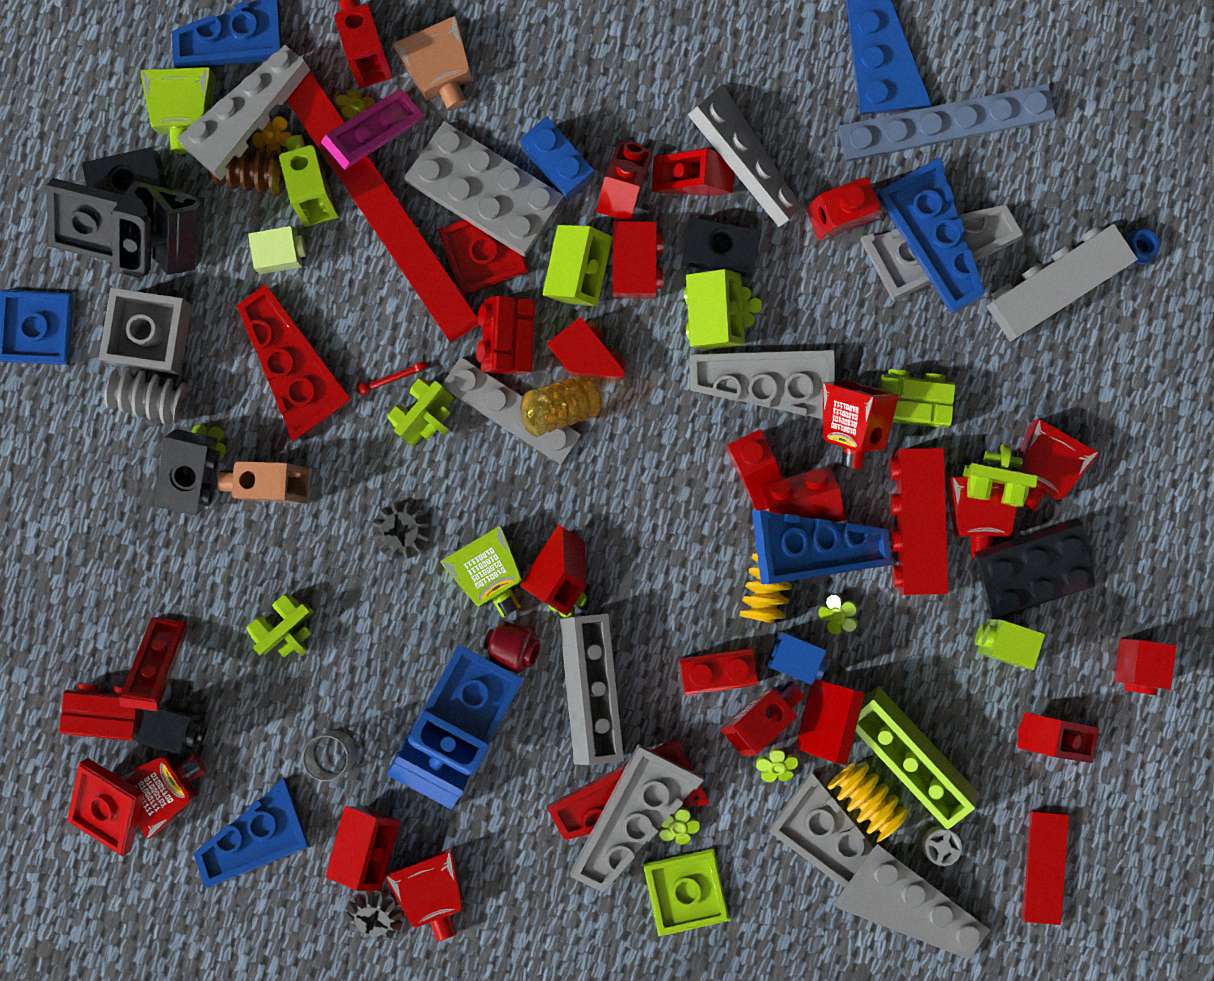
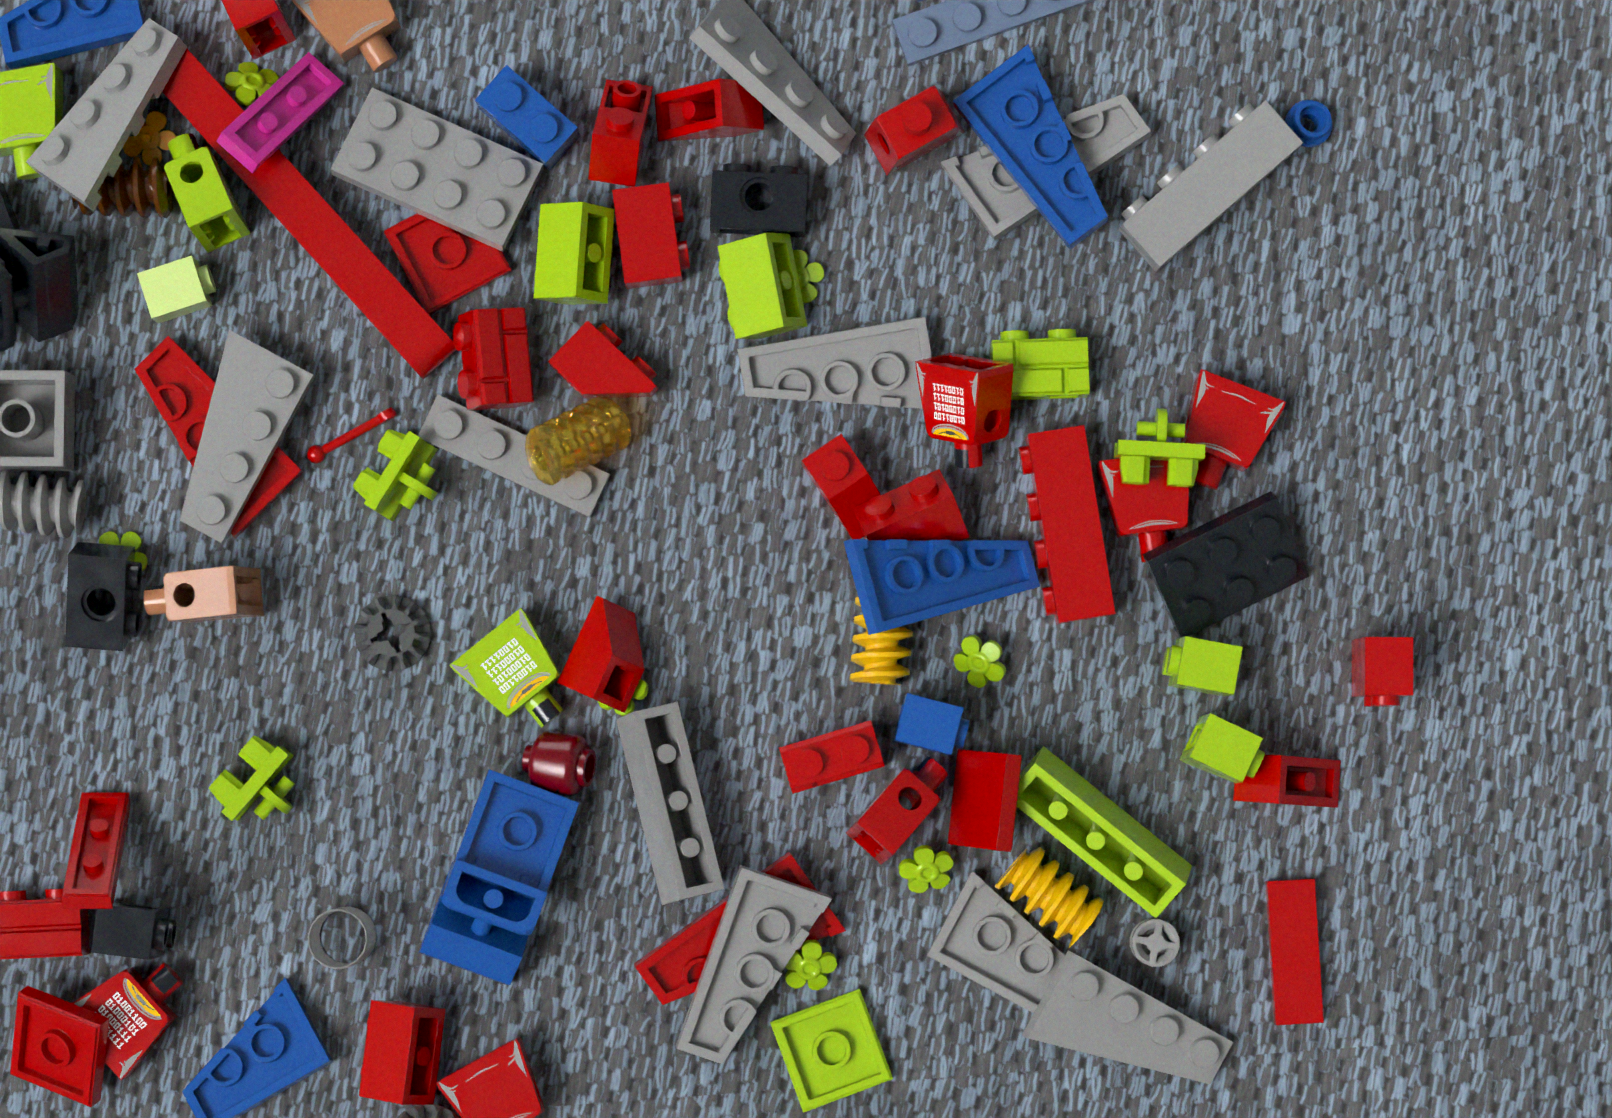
camera: 10 degrees left, 0 degrees up
(311, 360) = (244, 424): none -> light grey wing
(1015, 708) = (1223, 749): none -> lime slope

